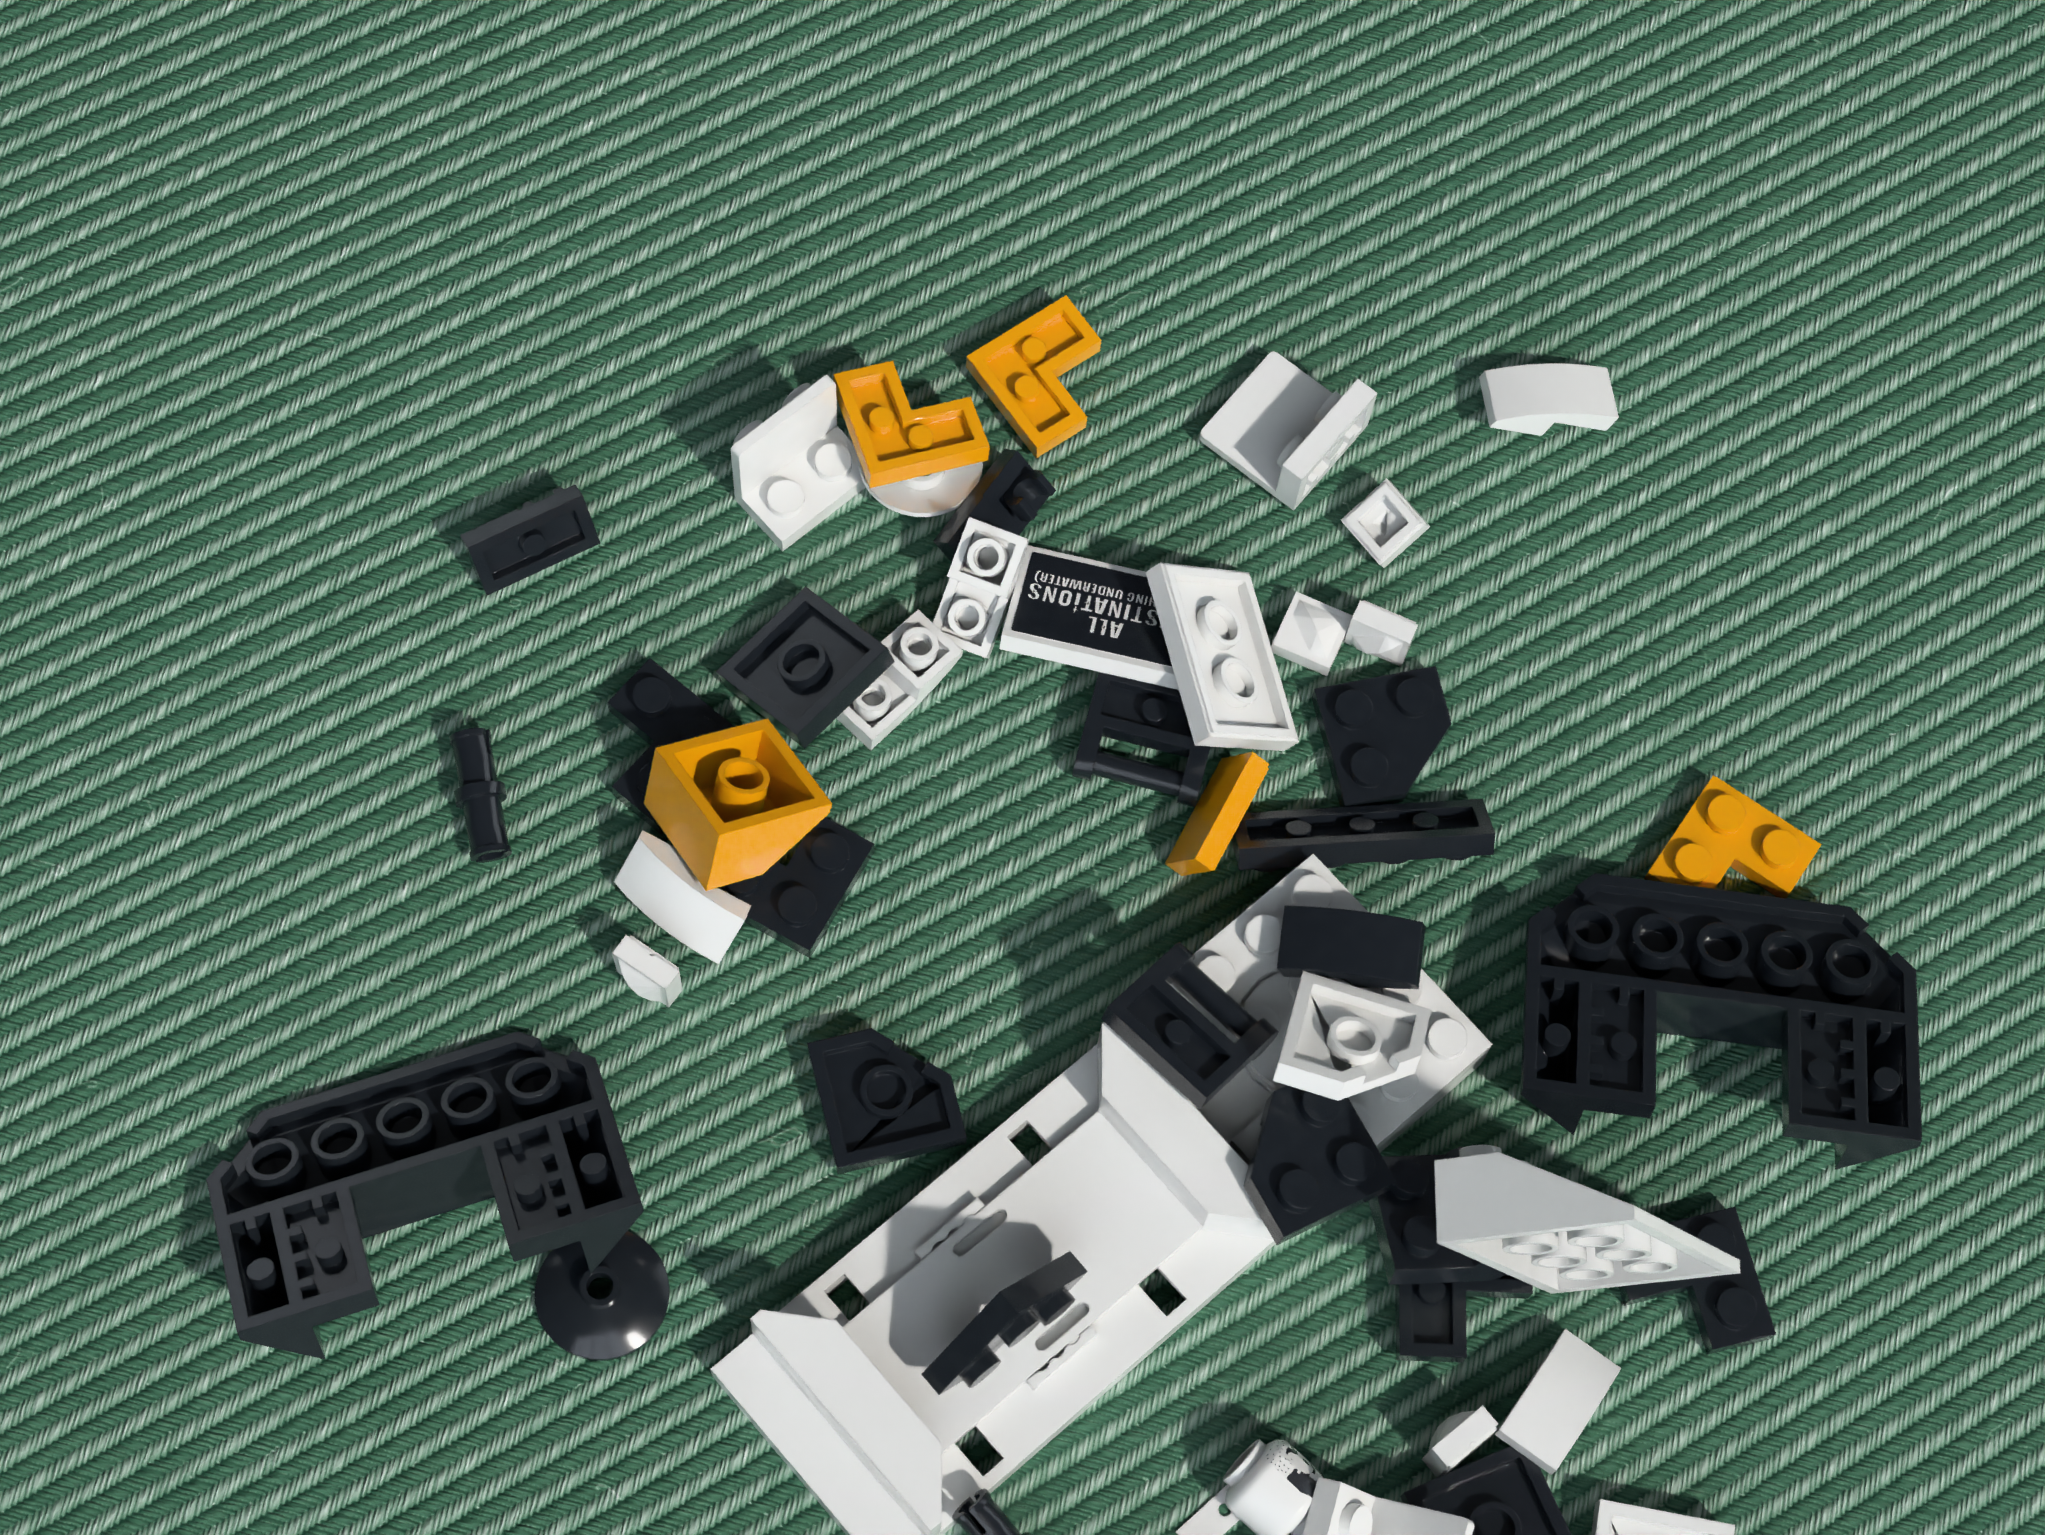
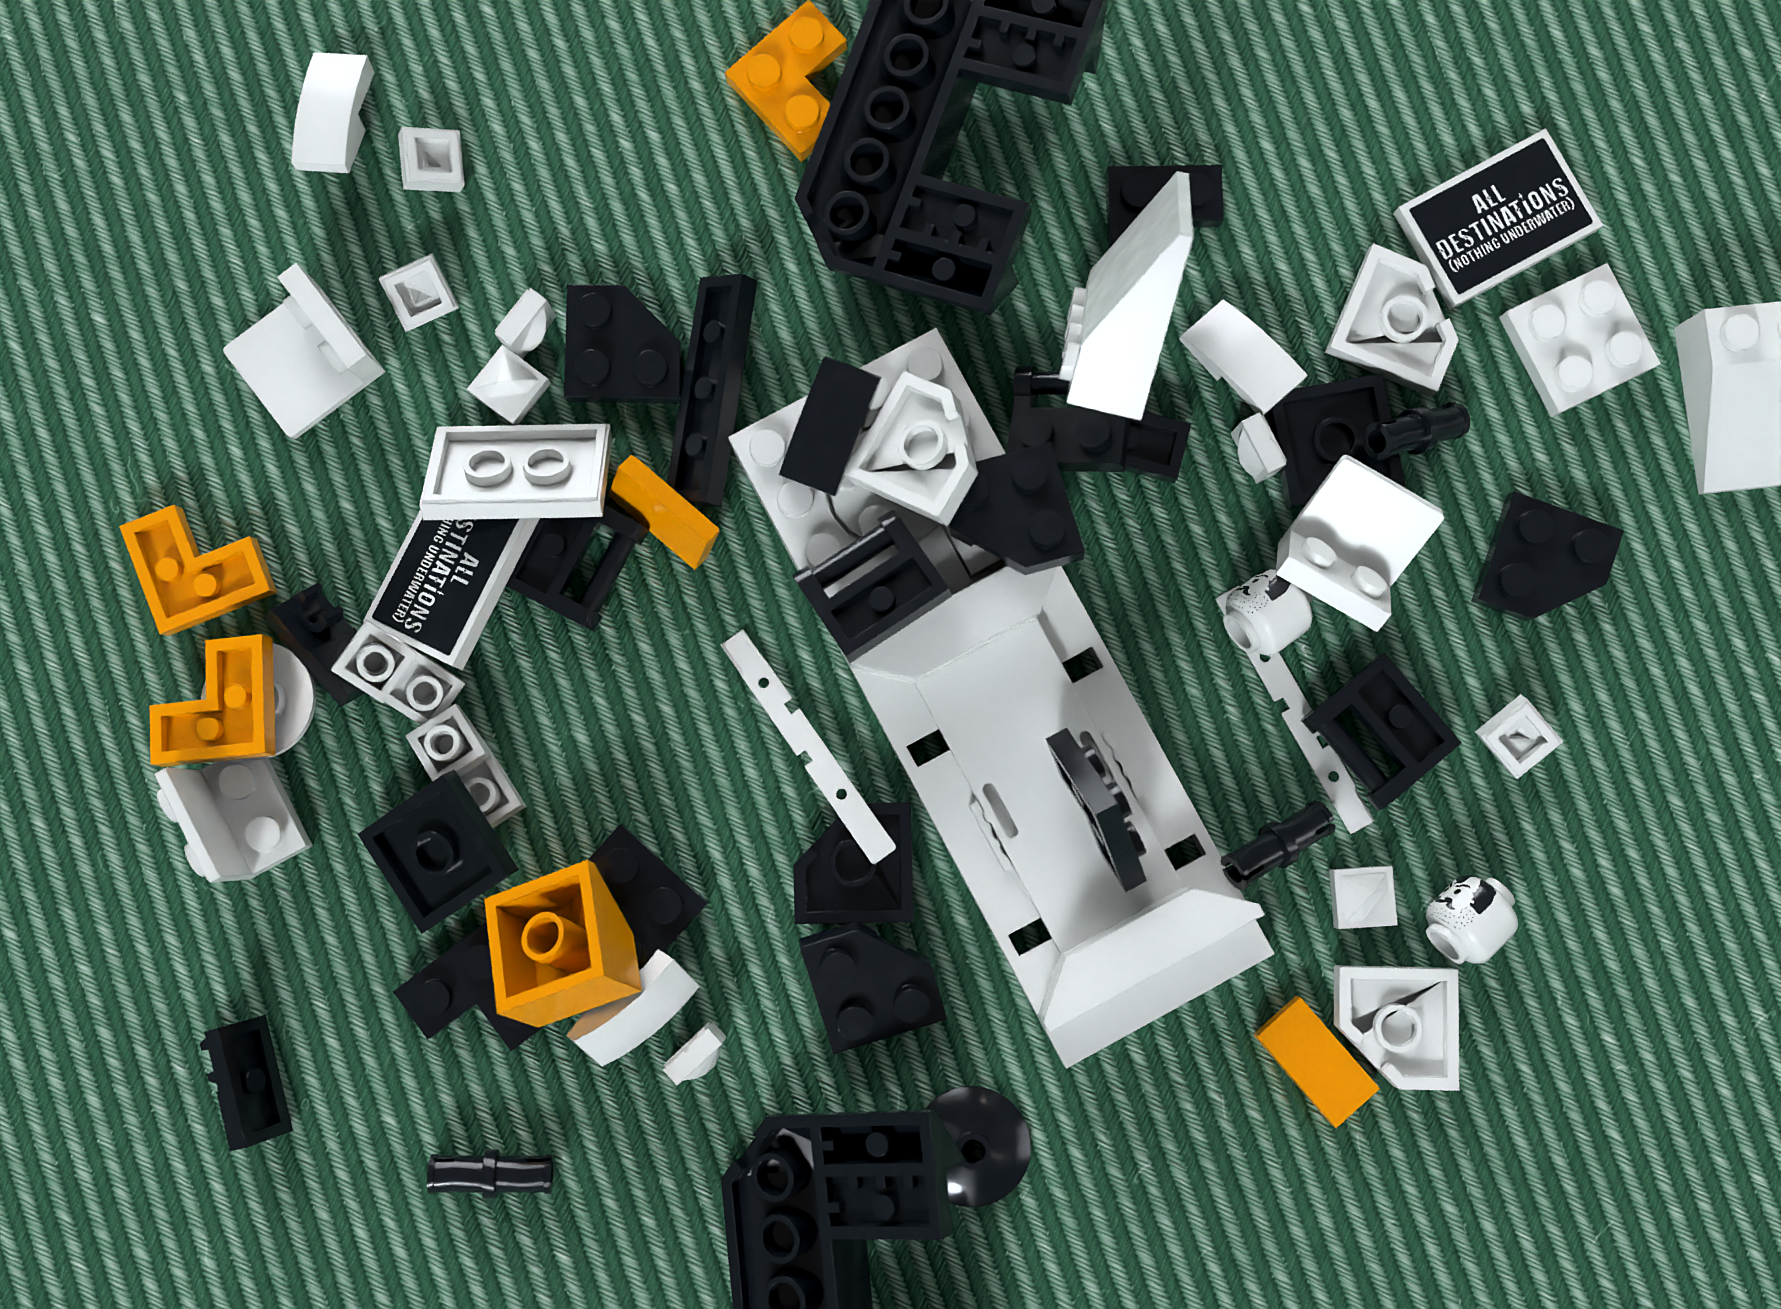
camera: 75 degrees left, 15 degrees up
(756, 1138) = (869, 986): none -> black plate
(1010, 1013) = (802, 737): none -> white piece
(1529, 504) = (431, 159): none -> white tile

